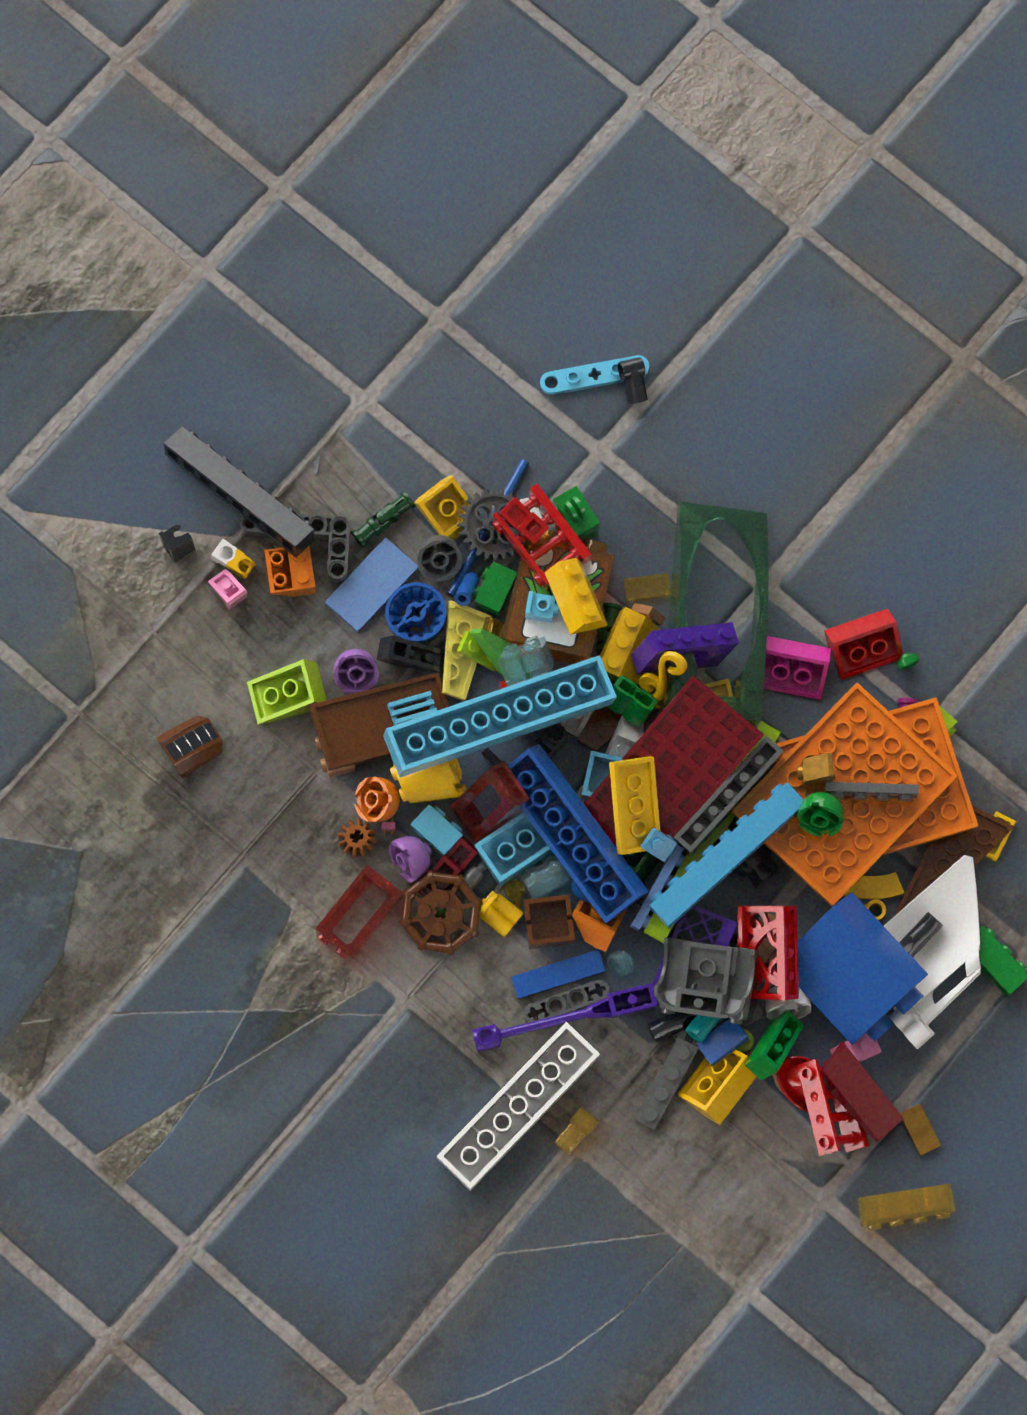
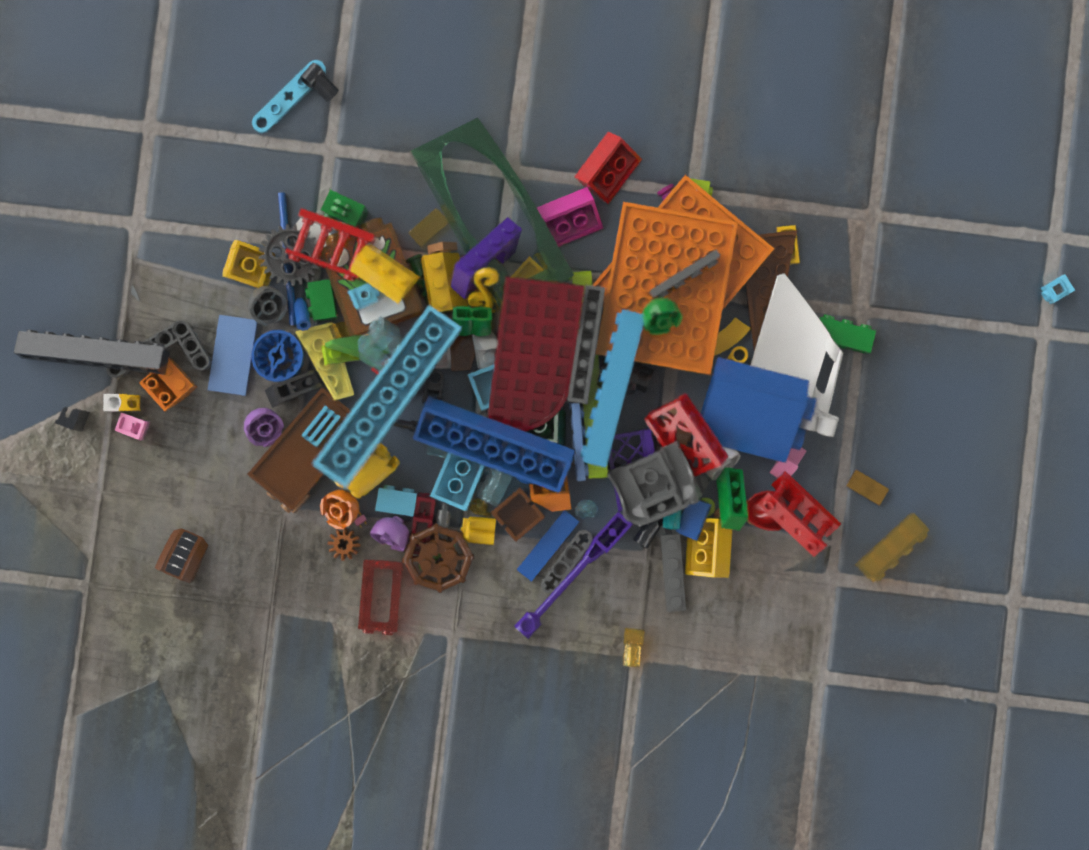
camera: 30 degrees left, 10 degrees up
(286, 691) = (224, 472): lime slope -> none
(389, 514) = (209, 299): dark green piece -> none
(508, 789) = (434, 449): clear red piece -> none
(518, 1106) = (582, 658): white brick -> none
(523, 520) = (309, 241): red slope -> none
(634, 802) = (525, 396): yellow plate -> none
(659, 844) = (560, 412): dark azure bracket -> none
(816, 770) = (637, 286): pearl gold slope -> none
(860, 1093) = (813, 492): dark red slope -> none
(907, 661) = (646, 159): green tile -> none
(921, 933) = (782, 351): black piece -> none

